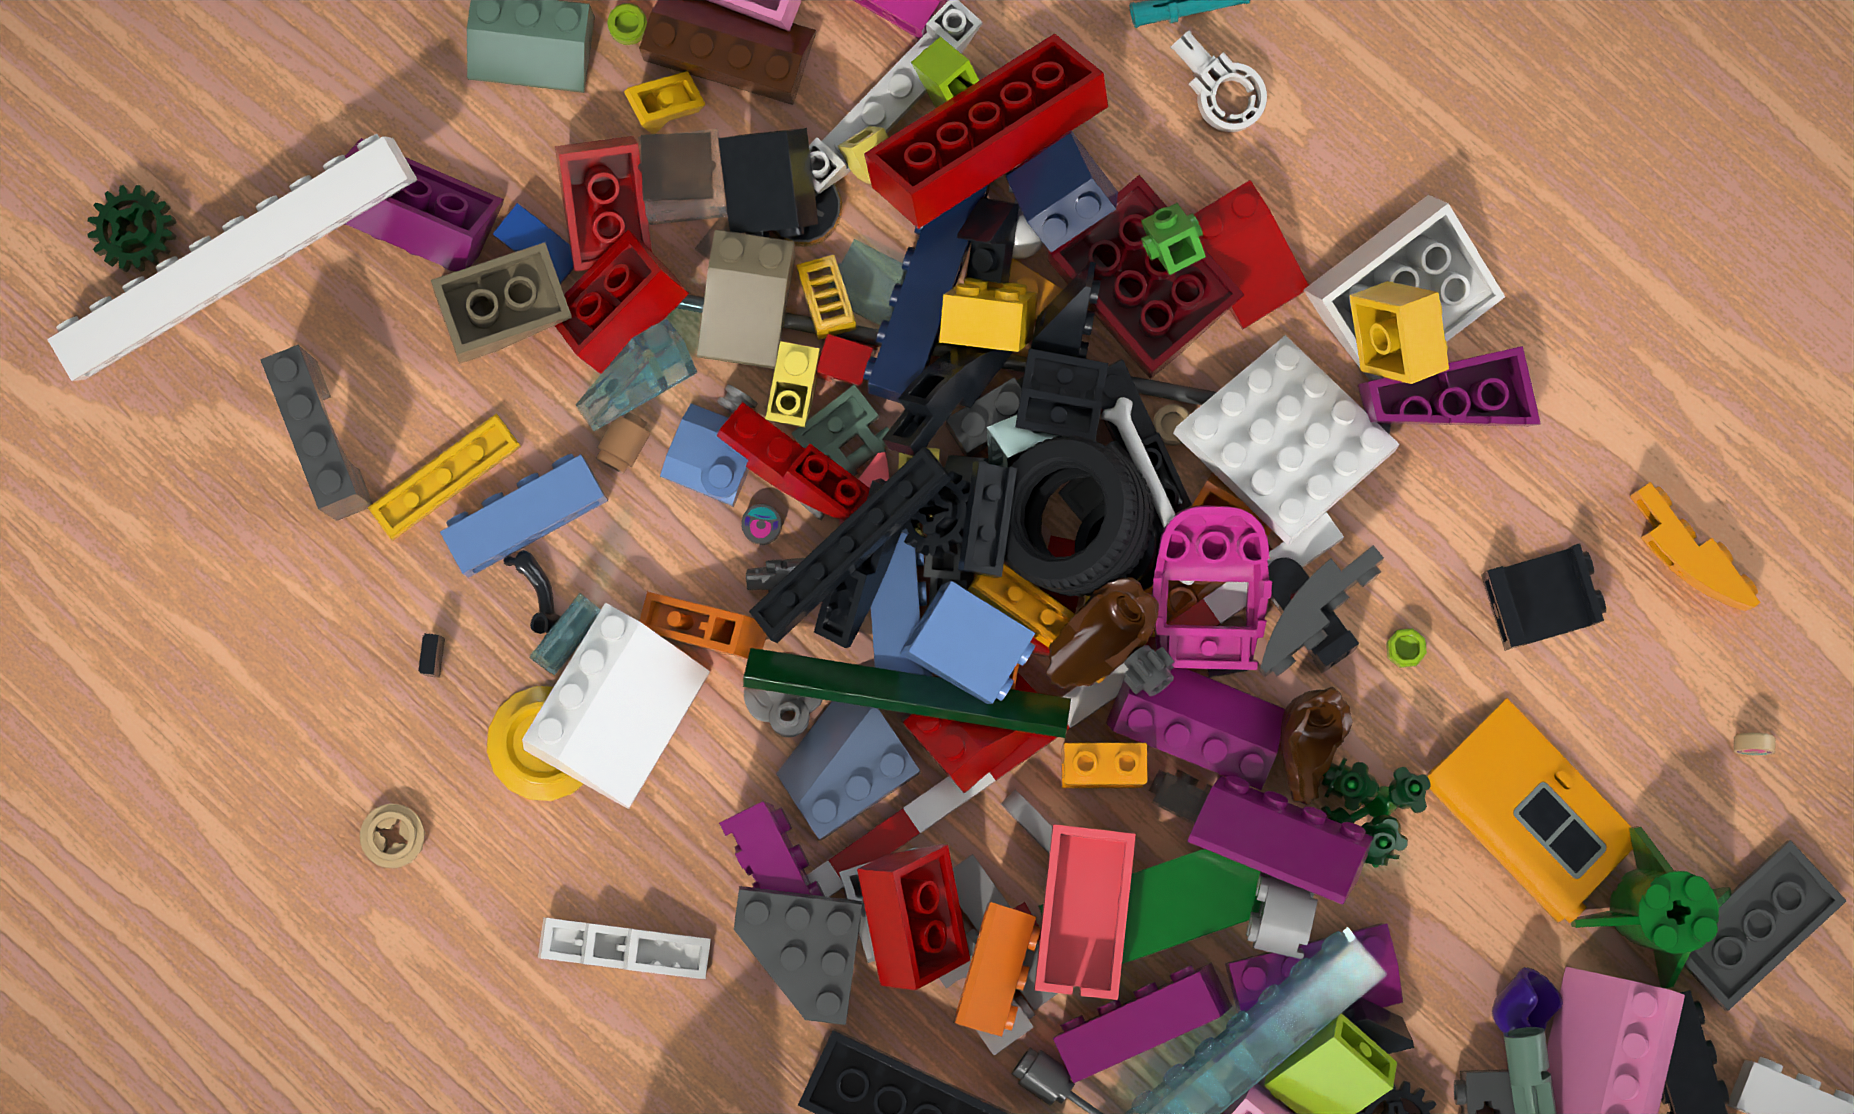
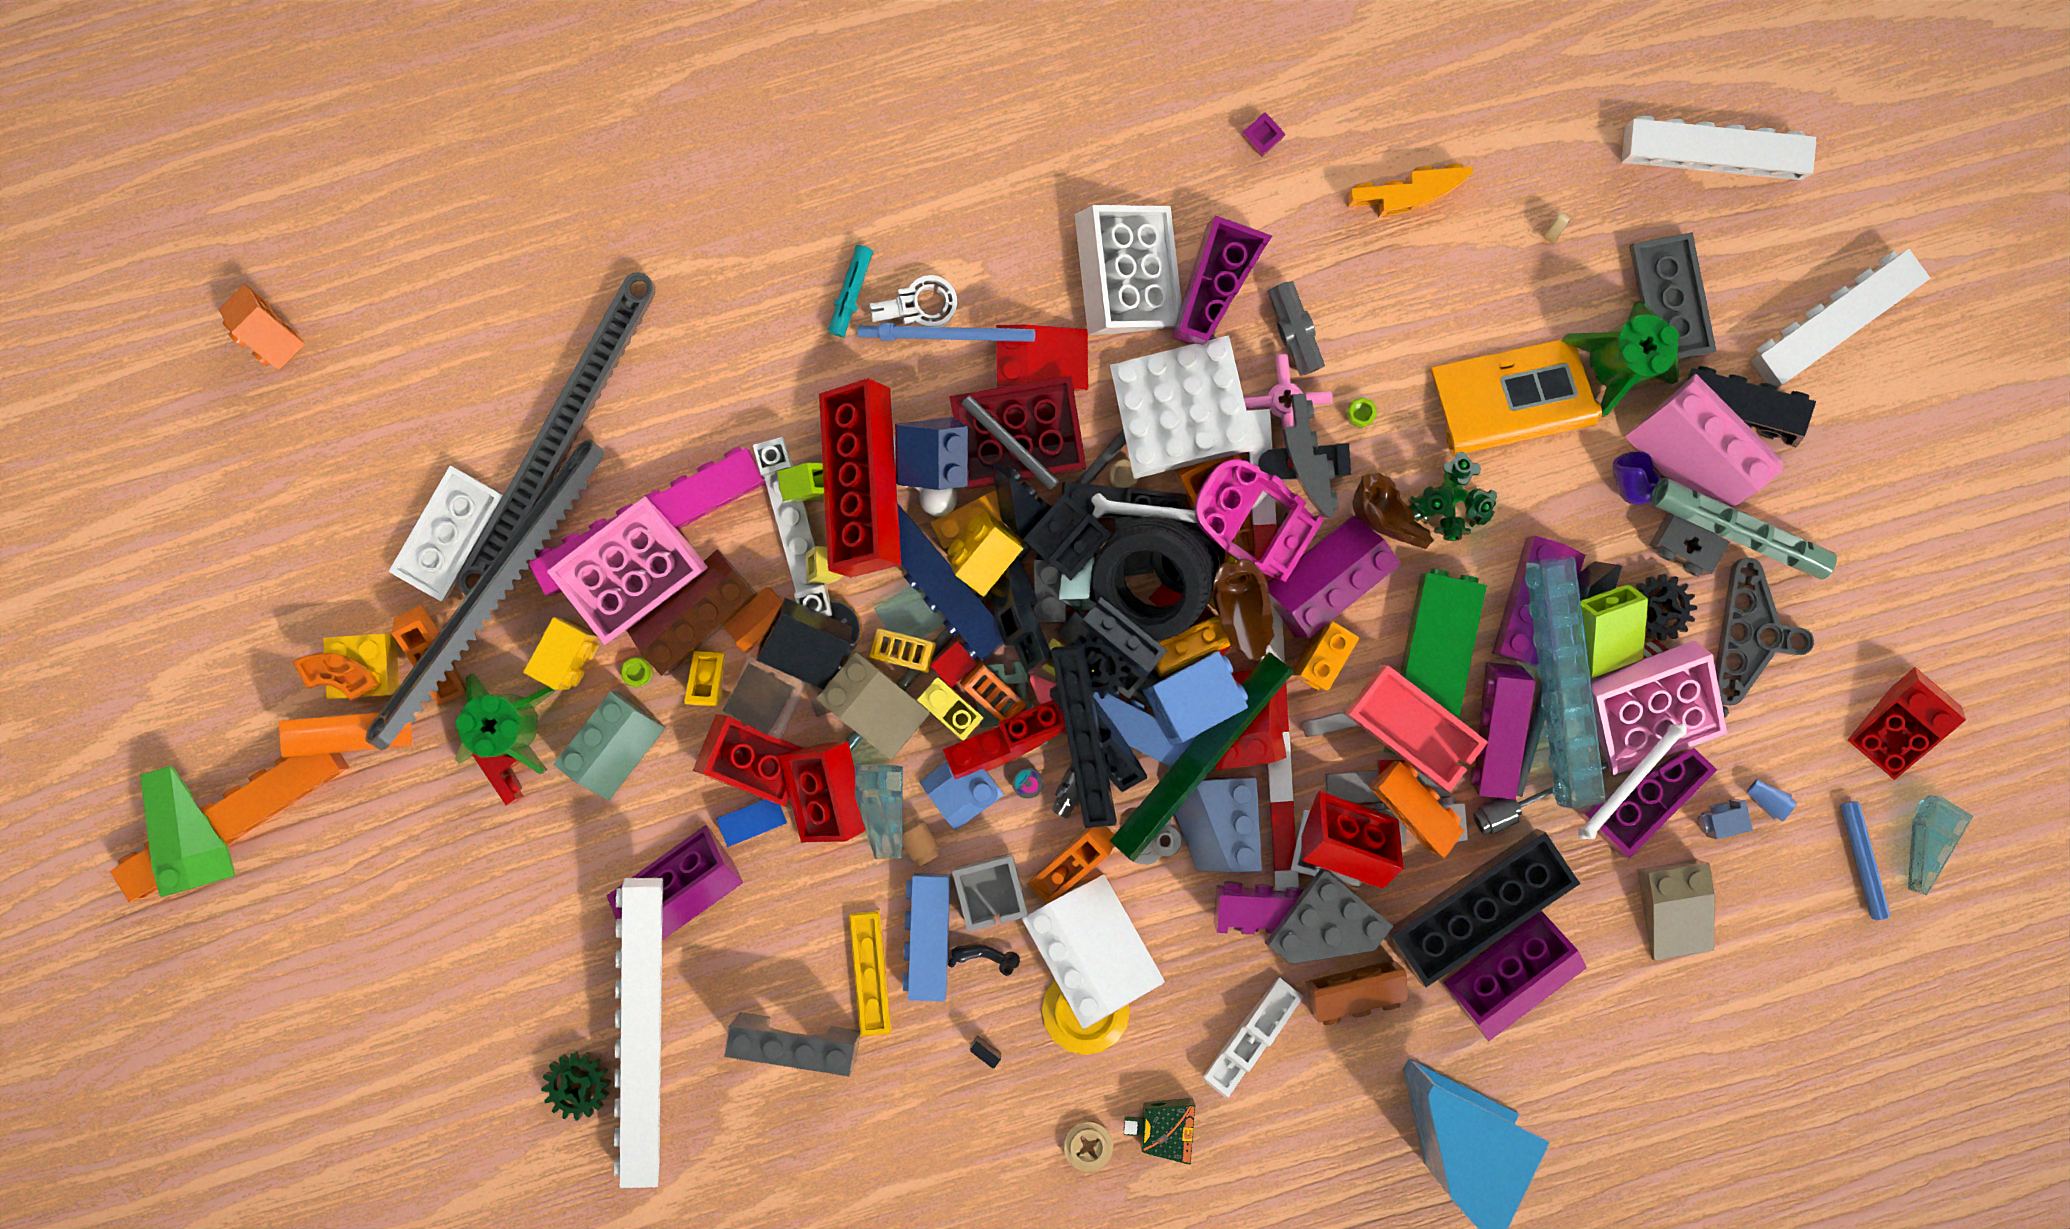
camera: 70 degrees left, 5 degrees up
(462, 909) = (1165, 1129): none -> torso
(500, 302) = (777, 868): dark tan slope -> none
(565, 634) = (1026, 956): clear light blue slope -> none
(614, 550) = (990, 889): none -> light grey piece
(734, 398) = (936, 751): light grey bush -> none
(744, 1035) = (1357, 992): none -> dark orange slope
(758, 113) = (753, 620): none -> orange panel
(826, 404) = (971, 679): none -> orange slope
(992, 236) = (932, 519): black slope -> none
(1127, 271) = (1009, 442): none -> dark grey bar
(1133, 1073) = (1531, 744): none -> dark grey bar
(1149, 670) = (1286, 591): dark grey gear -> none
(1172, 74) = (890, 332): none -> medium blue bar
(1173, 238) = (1009, 400): bright green brick -> none
(1179, 794) = (1370, 617): clear smoke brick -> none
(1281, 838) = (1447, 571): magenta slope -> none
(1283, 917) = (1493, 598): light grey brick -> none
(1382, 542) = (1284, 387): none -> bright pink bar
(1399, 332) = (1160, 290): yellow brick -> none
(1455, 517) = (1296, 328): none -> dark grey piece
(1544, 597) = (1381, 303): black panel -> none
(1650, 350) = (1263, 134): none -> magenta plate

